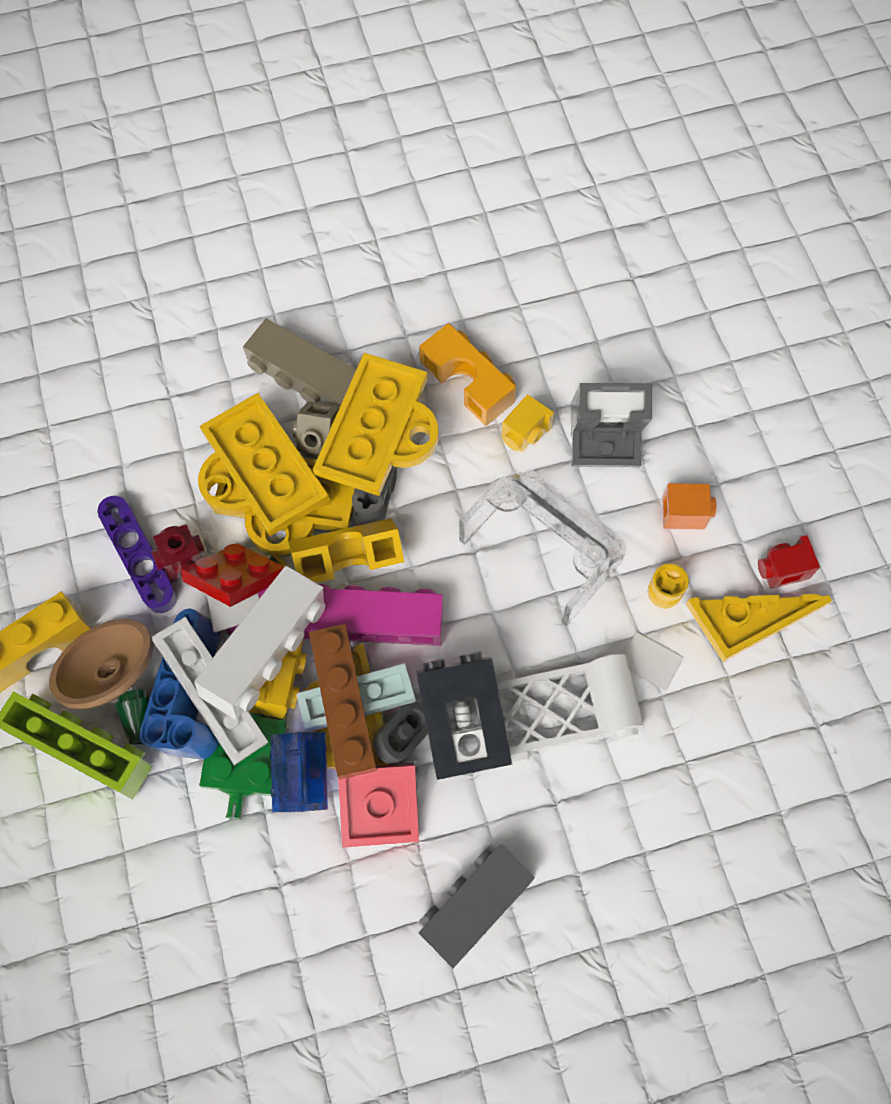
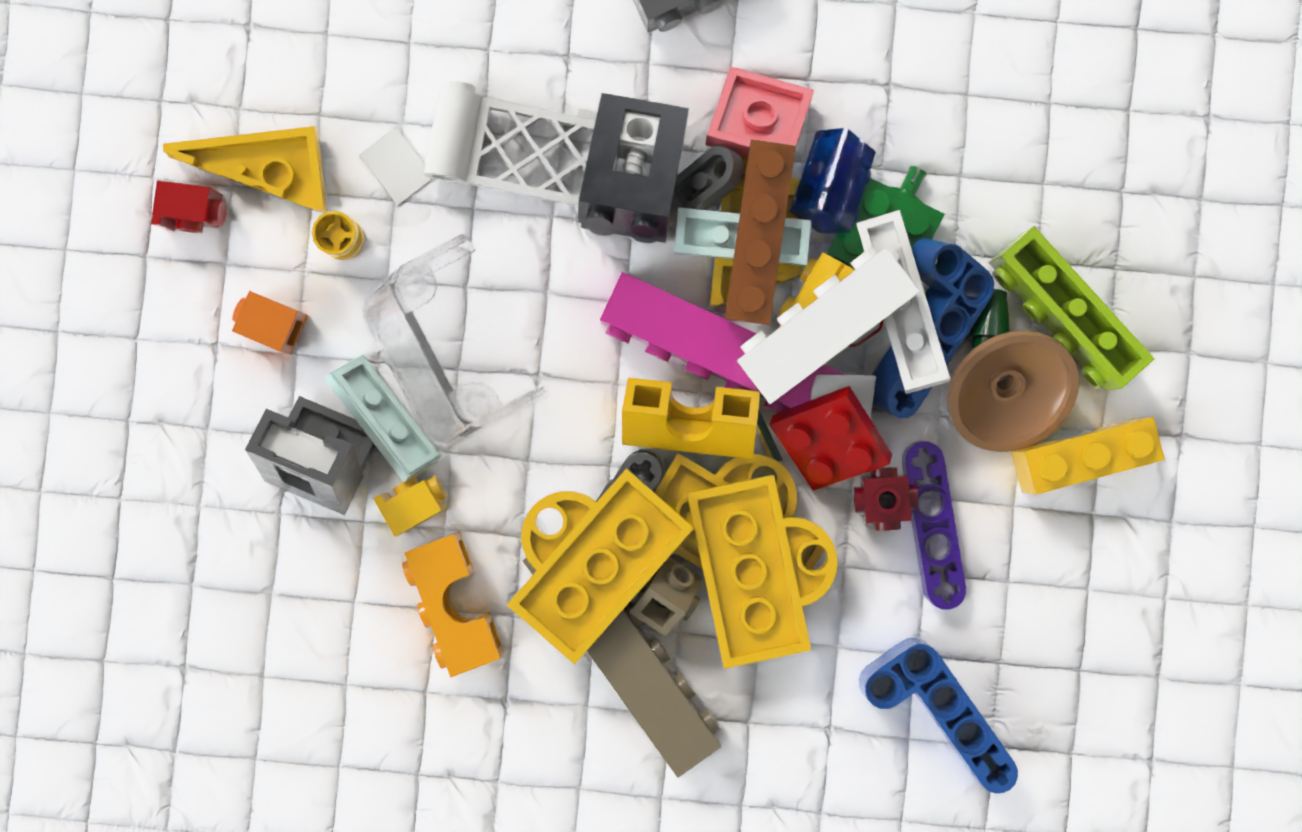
camera: 160 degrees left, 20 degrees up
(86, 427) = (948, 717): none -> blue beam
(573, 472) = (383, 418): none -> light aqua tile

